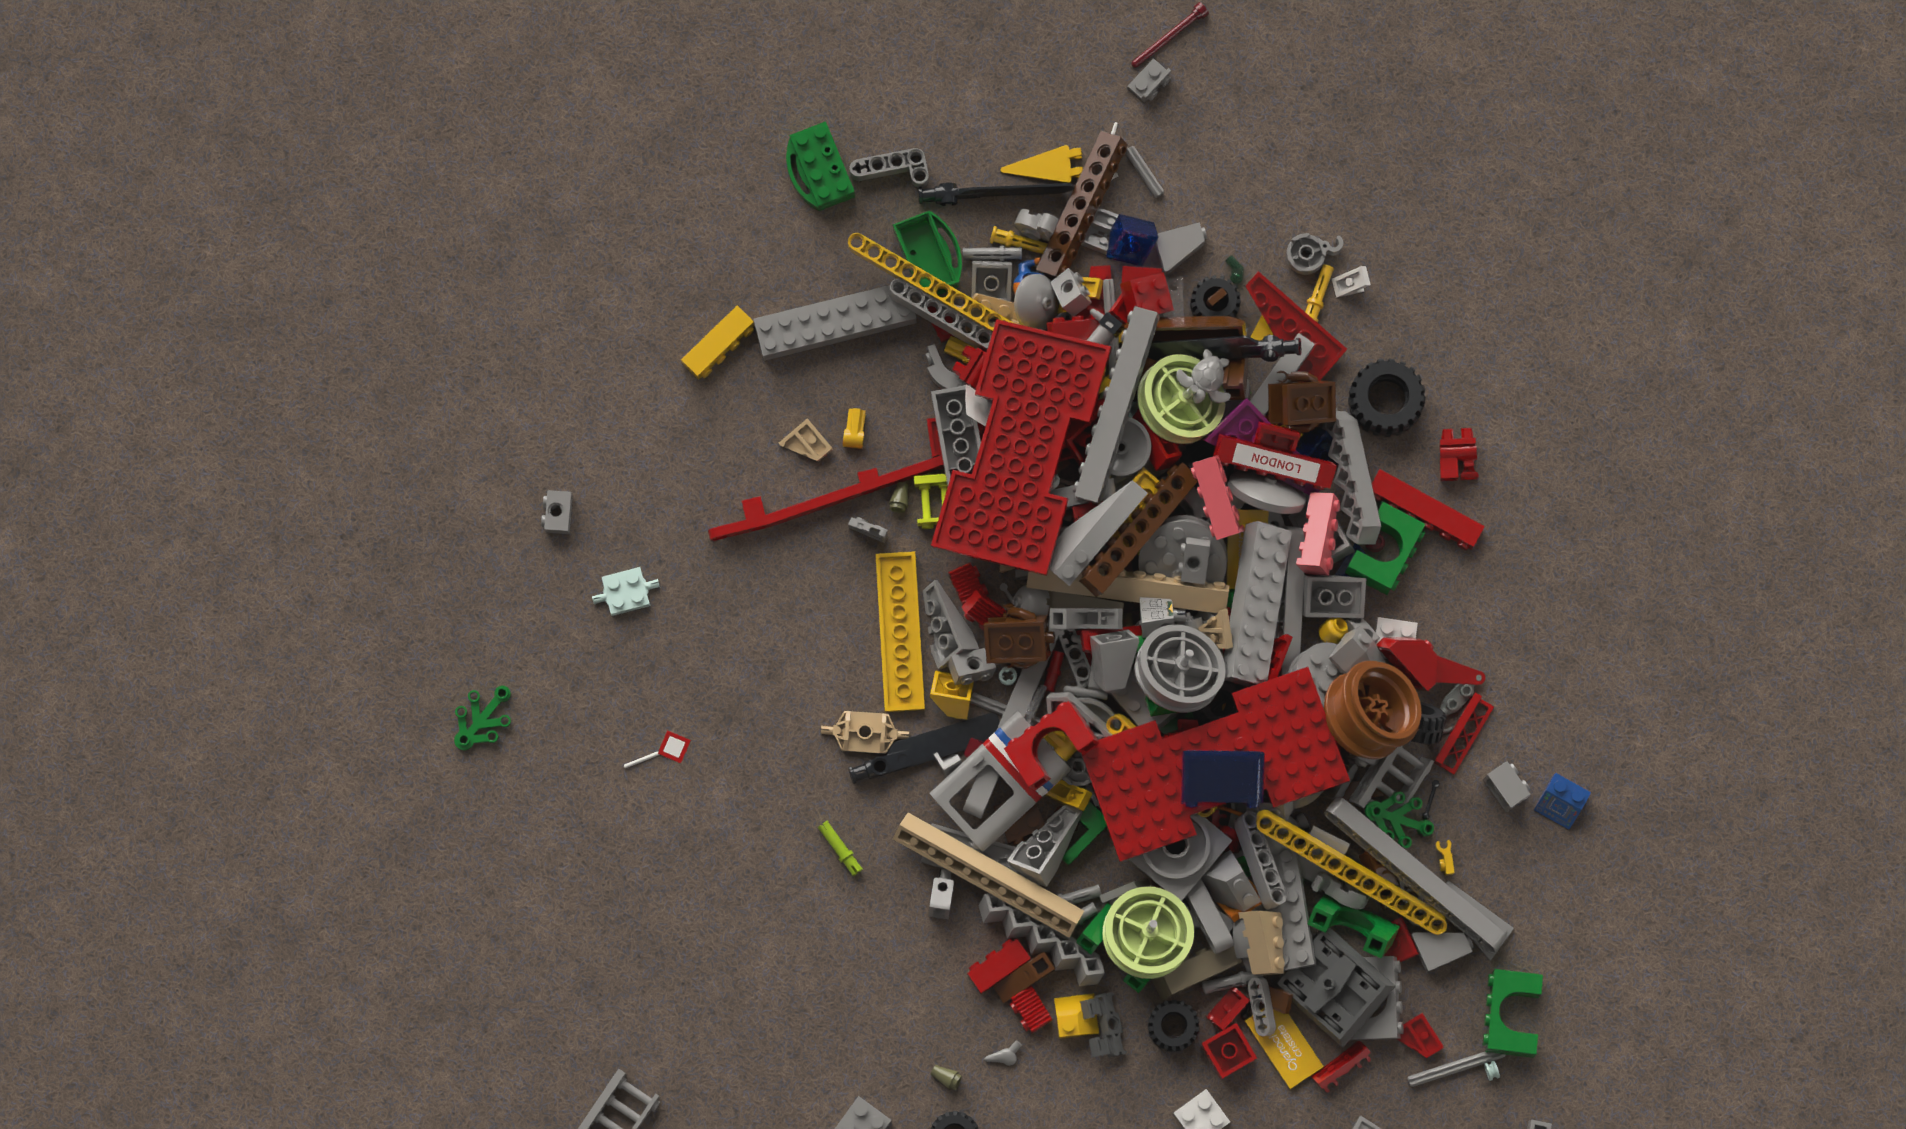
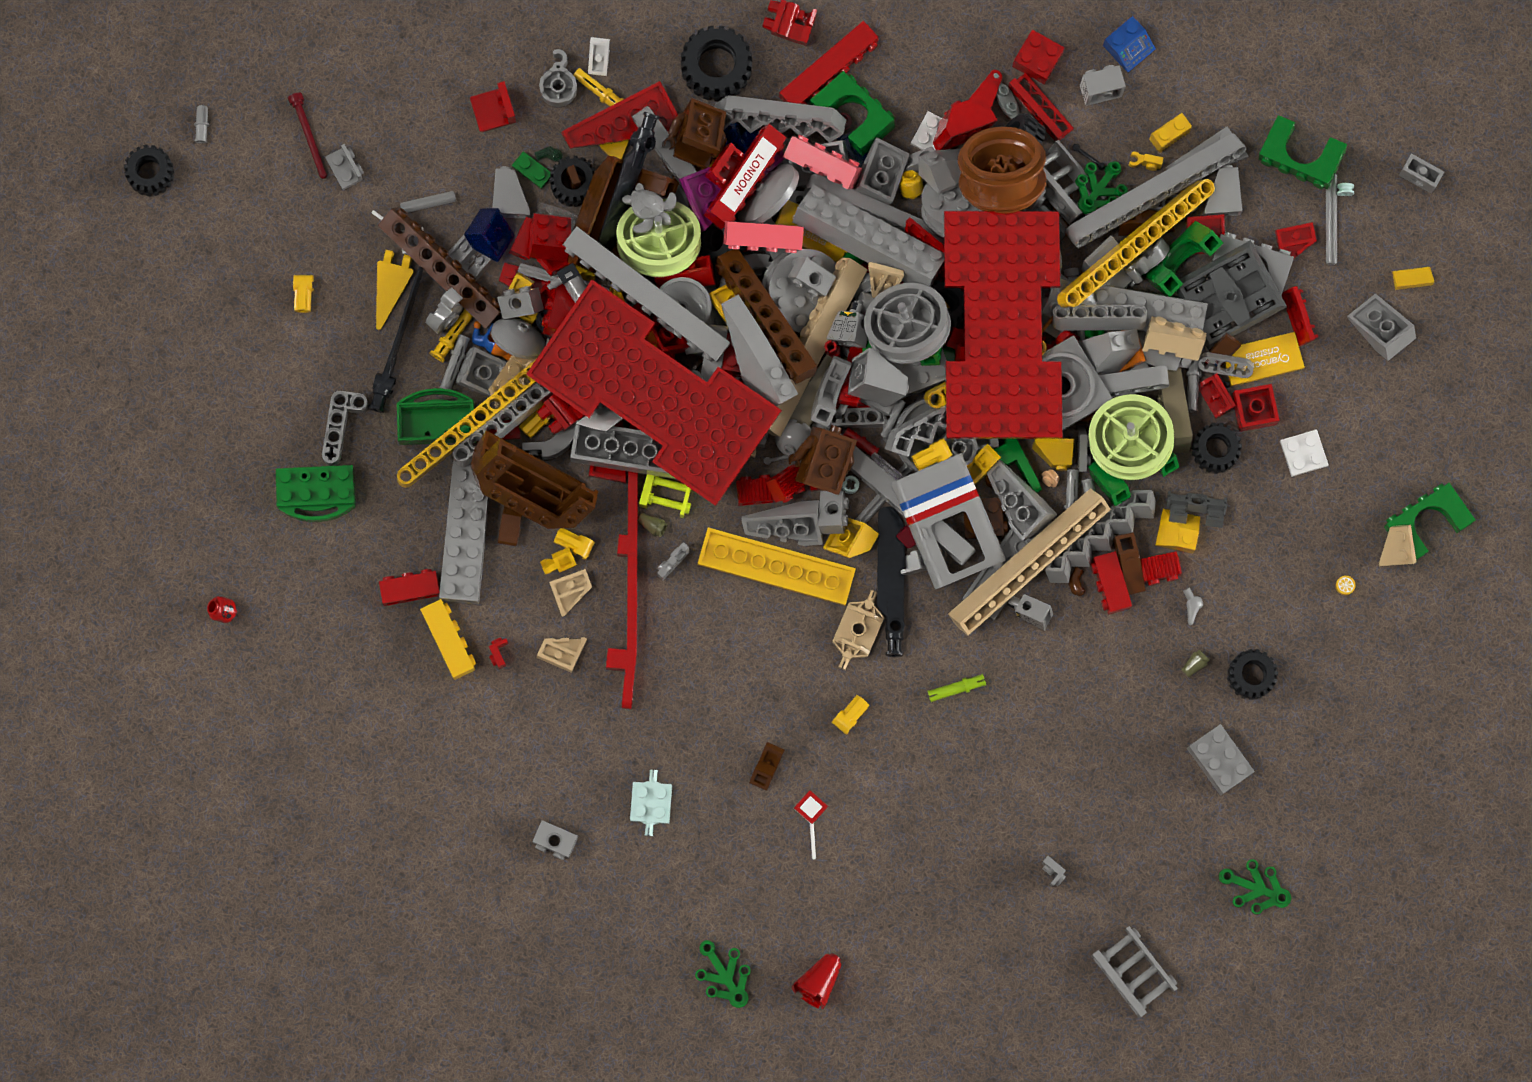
camera: 75 degrees left, 0 degrees up
(505, 811) = (818, 981): none -> red cone
(673, 121) = (222, 609): none -> red head
(691, 1000) = (1051, 868): none -> light grey bracket
(699, 690) = (766, 766): none -> reddish brown slope
(717, 394) = (496, 657): none -> red bracket
(743, 455) = (562, 652): none -> tan wing
(755, 288) = (409, 587): none -> red brick
(775, 752) = (848, 717): none -> yellow piece
(832, 421) = (561, 560): none -> yellow plate
(852, 361) = (509, 527): none -> reddish brown slope
(891, 361) = (530, 484): none -> reddish brown wedge
(987, 929) = (1074, 582): none -> reddish brown arm
(1013, 85) = (303, 292): none -> yellow piece
(1024, 749) = (933, 487): red arch -> none
(1083, 870) = (1050, 478): none -> light nougat plate
(1109, 868) = (1055, 452): none -> yellow slope
(1132, 609) = (832, 349): none -> red pin
(1213, 258) = (531, 170): none -> green plate
(1222, 777) = (1022, 319): clear blue windscreen -> none
(1261, 200) = (493, 108): none -> red bracket
(1484, 872) = (1170, 132): none -> yellow brick
(1513, 713) = (1038, 57): none -> red brick

